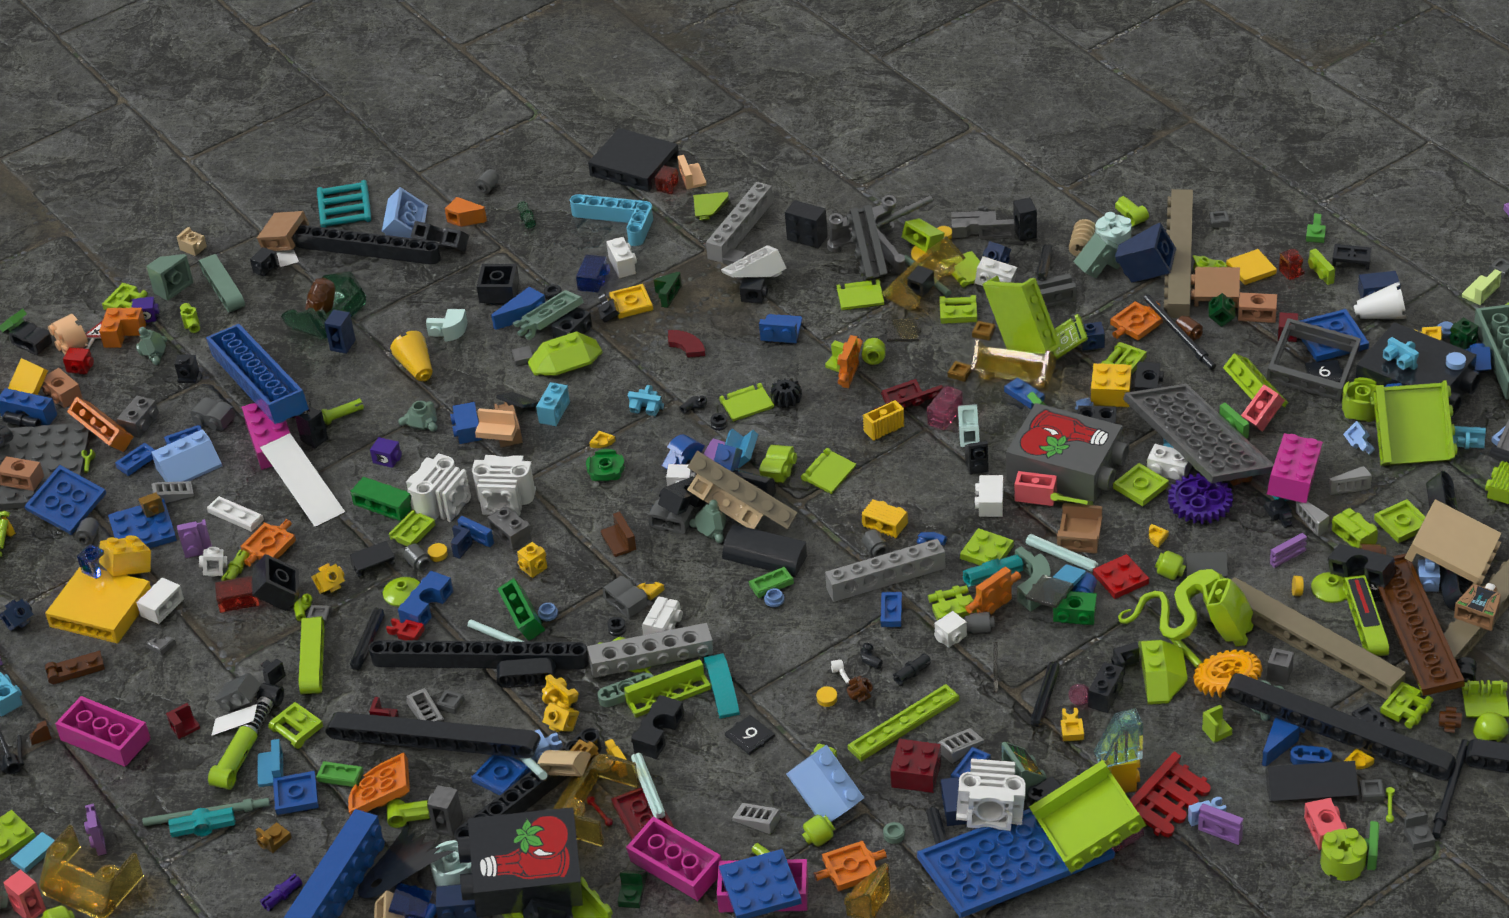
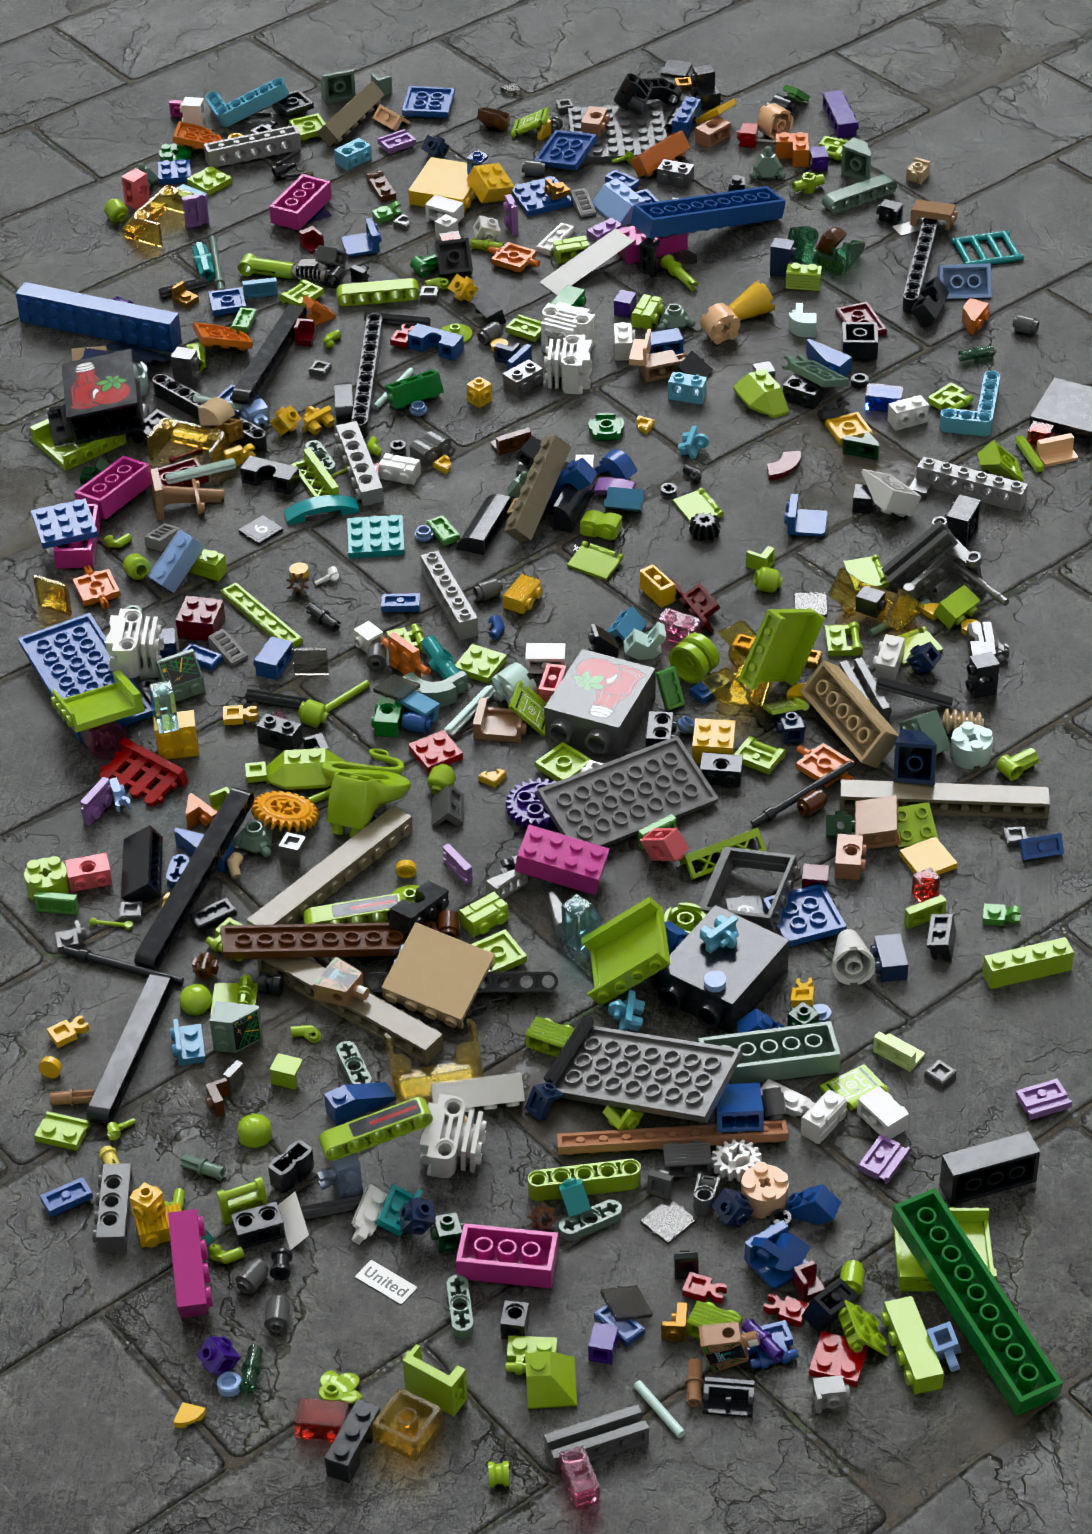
camera: 85 degrees right, 0 degrees up
(59, 293) = (840, 114): none -> brick
(137, 660) = (385, 214): none -> bright green plate
(198, 598) = (445, 224): none -> white brick
(199, 671) = (363, 243): none -> bracket
(231, 473) = (602, 229): none -> medium lavender plate
(249, 841) = (190, 285): none -> black axle
(264, 616) = (423, 265): none -> green piece
(268, 496) = (568, 248): none -> lime brick
(341, 704) = (318, 311): none -> orange slope
(371, 322) = (803, 277): none -> lime brick
(394, 695) = (330, 337): none -> lime arm
(409, 435) = (647, 312): none -> lime brick
(419, 696) = (316, 351): light grey slope -> none
(449, 289) = (860, 313): none -> tile
(450, 376) = (720, 323): none -> light nougat brick
(461, 449) = (623, 340): none -> white brick
(597, 233) = (948, 395): none -> lime plate
(690, 190) = (1029, 453): none -> lime axle
(694, 810) = (166, 495): none -> medium nougat piece
(772, 637) = (375, 536): none -> plate
(849, 360) = (741, 558): orange plate -> none
(868, 657) = (343, 592): black arm -> none
(934, 448) = (626, 622): none -> dark azure panel
(982, 701) = (273, 658): none -> brick
(1001, 390) = (694, 657): none -> lime wheel
(1037, 513) = (507, 679): none -> light aqua brick
(1037, 646) = (347, 695): none -> lime bar
(1072, 665) = (312, 713): none -> lime head
(1090, 292) = (850, 714): none -> tan brick
(1161, 705) = (256, 772): none -> lime plate
(1228, 743) = (198, 811): none -> orange slope
(1236, 202) = (1041, 846): none -> blue plate
(1371, 454) = (578, 920): none -> clear light blue slope
(1377, 213) = (1028, 963): none -> lime brick

